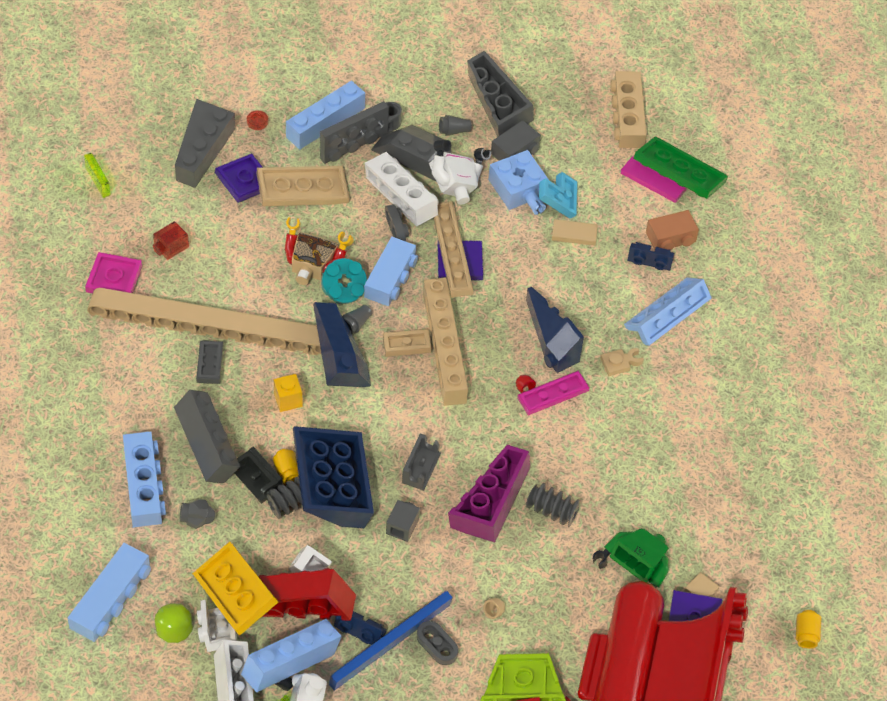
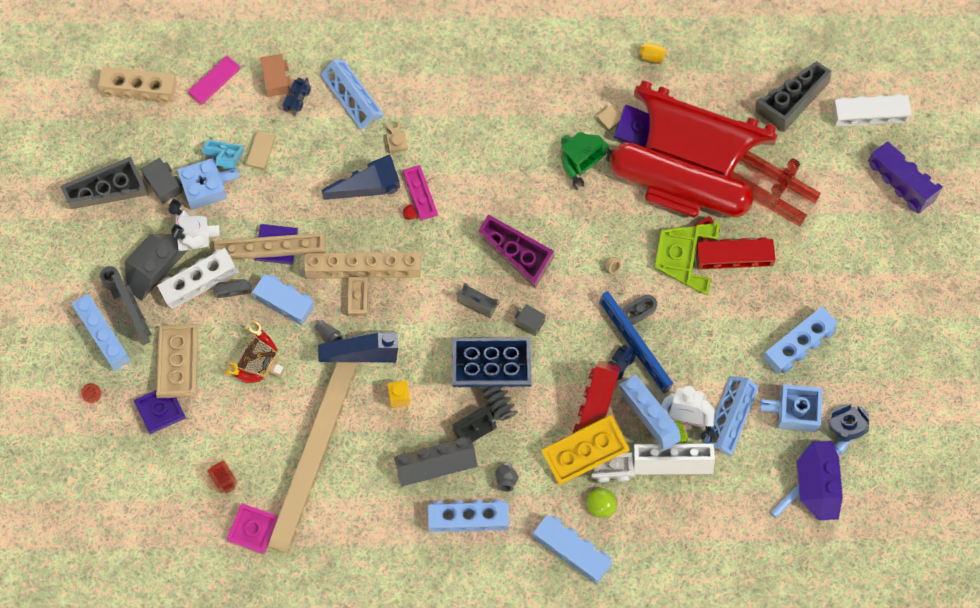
camera: 80 degrees left, 15 degrees up
(97, 175) = (136, 536): clear neon green tile -> none
(203, 140) = (110, 439): dark grey wedge -> none
(209, 362) = (355, 455): dark grey plate -> none
(286, 465) = (469, 402): yellow brick -> none
(309, 560) = (565, 394): white panel -> none
(335, 290) = (294, 328): teal plate -> none
(454, 125) = (129, 228): dark grey cone -> none
(553, 504) = (528, 205): dark grey piece -> none
(680, 167) = (209, 55): green plate -> none

